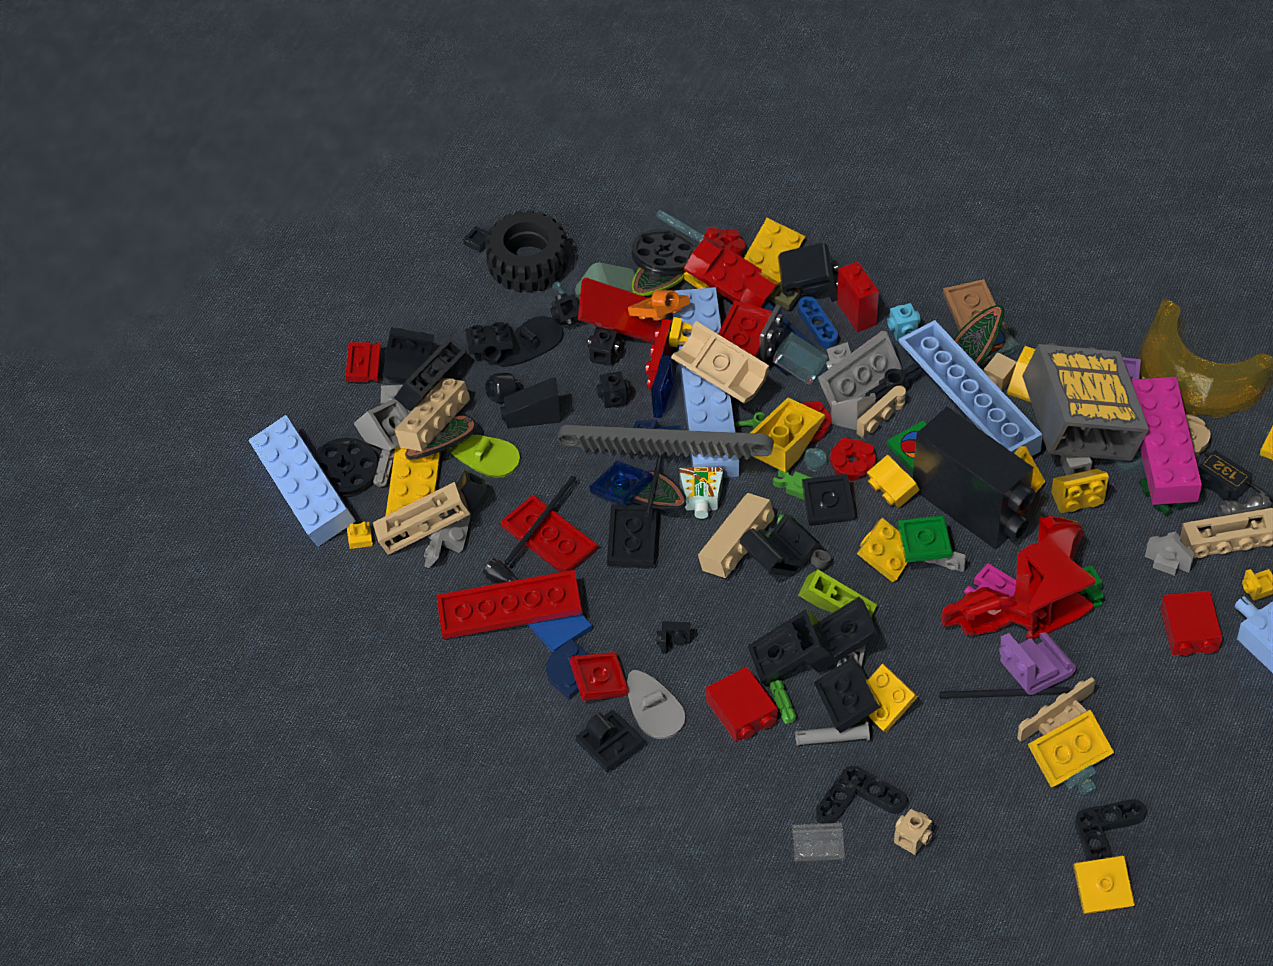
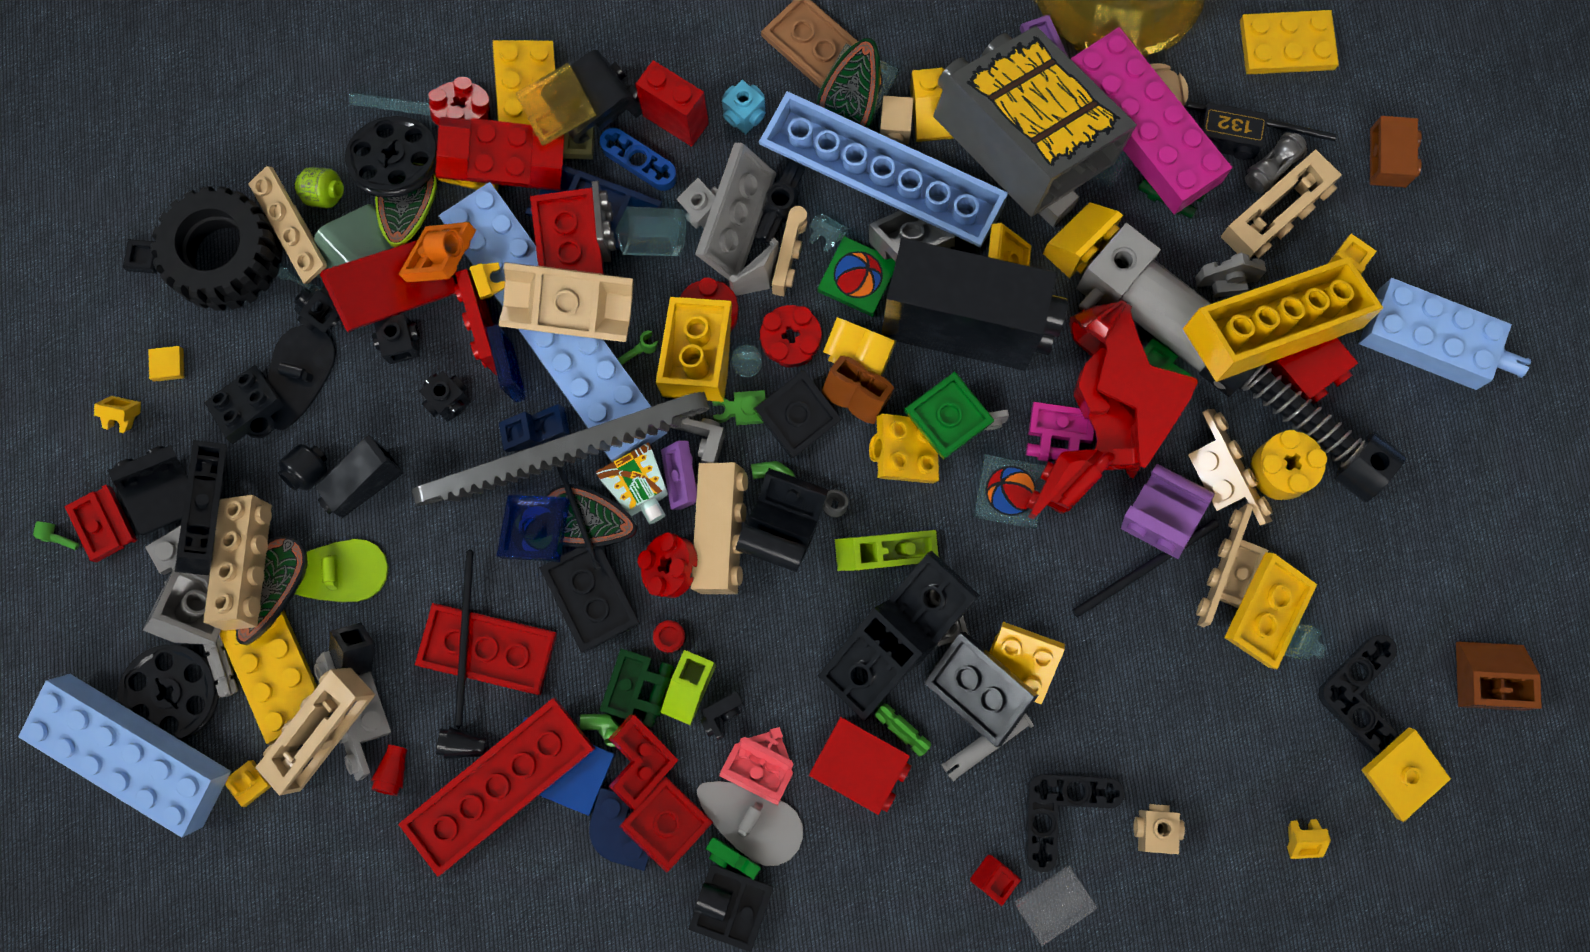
camera: 30 degrees left, 25 degrees up
(327, 354) = (45, 532): none -> bright green hand
(408, 307) = (117, 409): none -> yellow tile
(448, 569) = (390, 772): none -> red cone
(455, 300) = (166, 363): none -> yellow tile
(577, 254) = (288, 224): none -> tan bracket
(595, 609) = (603, 723): none -> bright green arm
(608, 248) = (319, 187): none -> lime head
(610, 635) = (647, 758): none -> red plate
(623, 593) = (627, 685): none -> dark green plate
(627, 711) = (724, 854): none -> green plate
(663, 605) = (687, 687): none -> lime slope
(667, 582) = (669, 636): none -> red tile
(678, 677) = (760, 765): none -> coral slope
(689, 539) = (654, 562): none -> red plate
(730, 499) = (679, 475): none -> medium lavender plate
(763, 482) = (710, 447): none -> light grey bracket
(782, 261) = (555, 104): none -> clear yellow slope
(789, 813) = (995, 879): none -> red slope
(874, 500) = (856, 389): none -> dark orange brick
(915, 412) = (827, 228): none -> clear light blue tile
(929, 606) = (1006, 489): none -> tile
(1010, 890) = (1307, 843): none -> yellow tile
(1093, 660) = (1224, 472): none -> tan bracket
(1136, 594) = (1166, 304): none -> piece
(1136, 675) = (1305, 464): none -> yellow brick
(1176, 574) = (1281, 318): none -> yellow brick
(1201, 862) = (1496, 677): none -> dark orange slope

